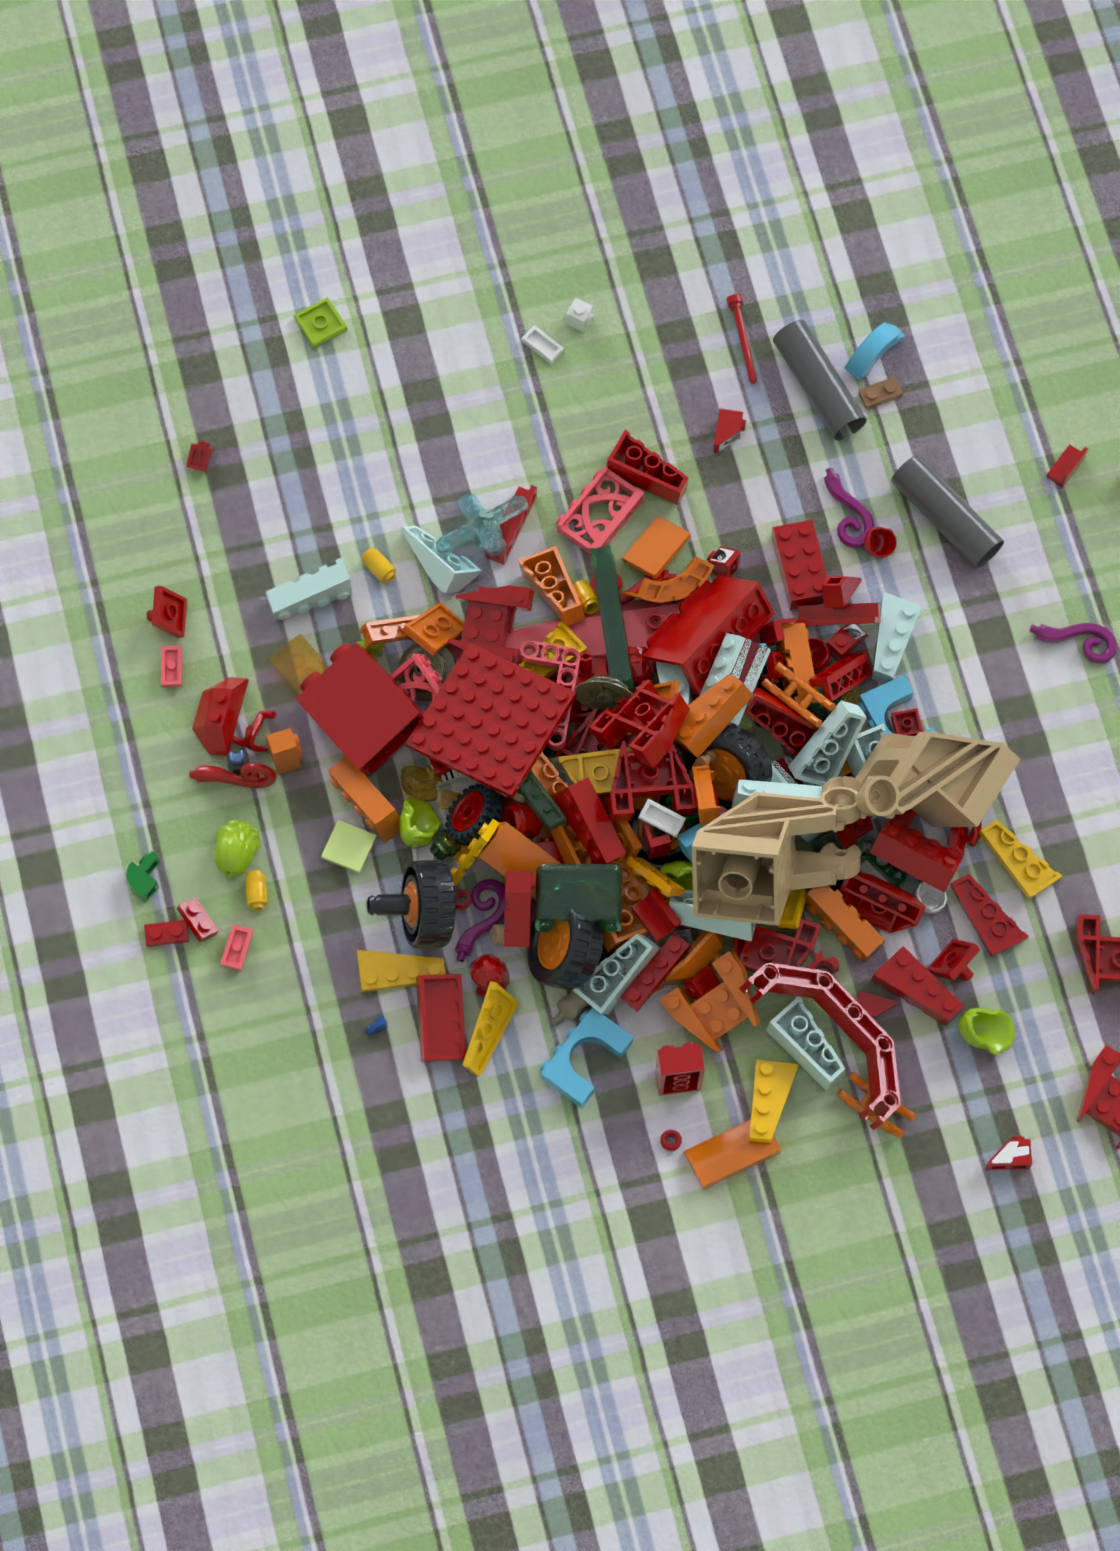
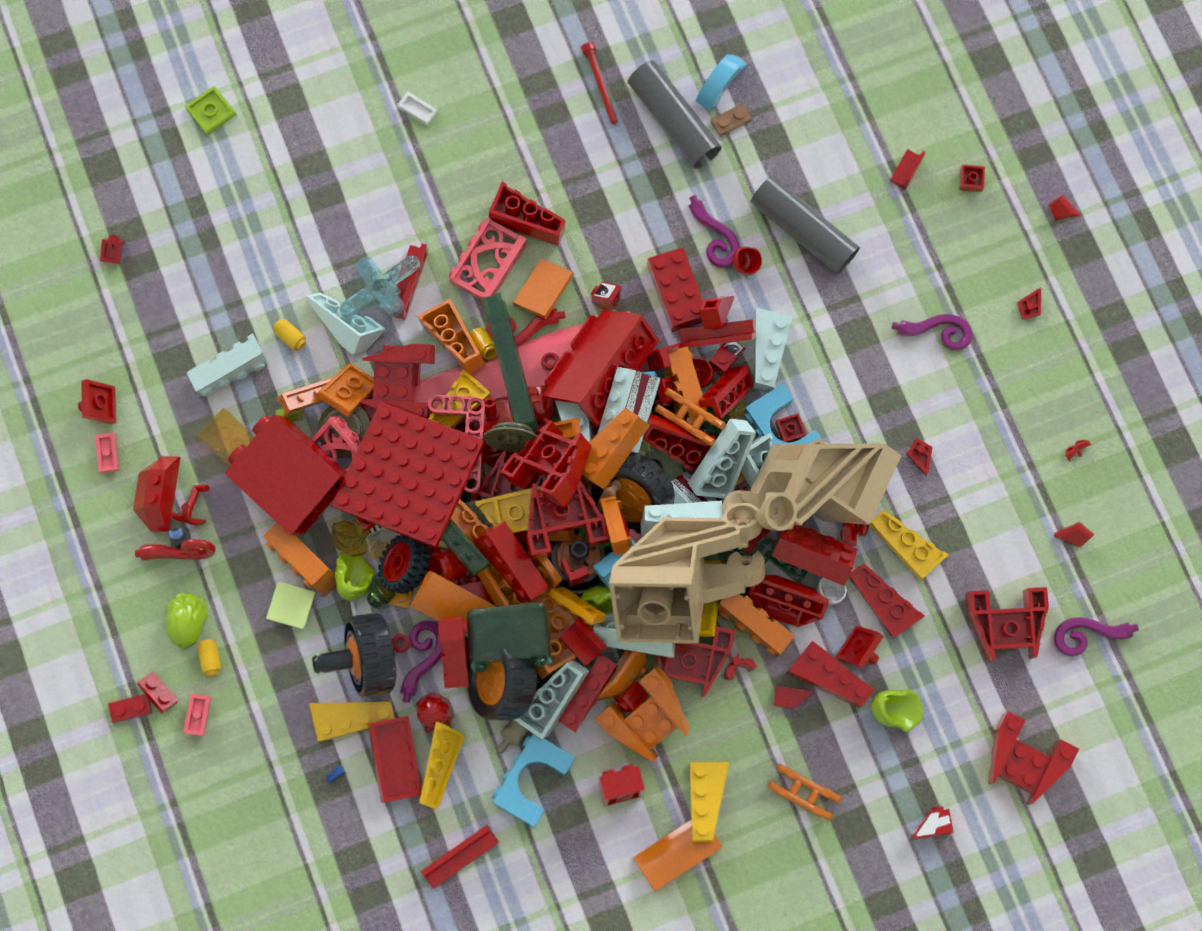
camera: 10 degrees left, 5 degrees up
(138, 876) = (97, 660): green brick -> none
(285, 750) = (219, 522): orange wedge -> none
(475, 848) = (407, 597): yellow wing -> none
(497, 934) = (437, 671): tan tile -> none
(498, 1126) = (459, 856): none -> red fence
(579, 315) = (448, 77): white brick -> none
(662, 818) = (577, 551): white tile -> none
(670, 1134) = (622, 842): red plate -> none
(676, 588) = (578, 315): orange panel -> none
(728, 428) = (596, 169): red slope -> none
(806, 1043) = (734, 742): light aqua wedge -> none
(850, 1018) = (780, 721): red piece -> none
(1045, 768) = (920, 454): none -> red piece

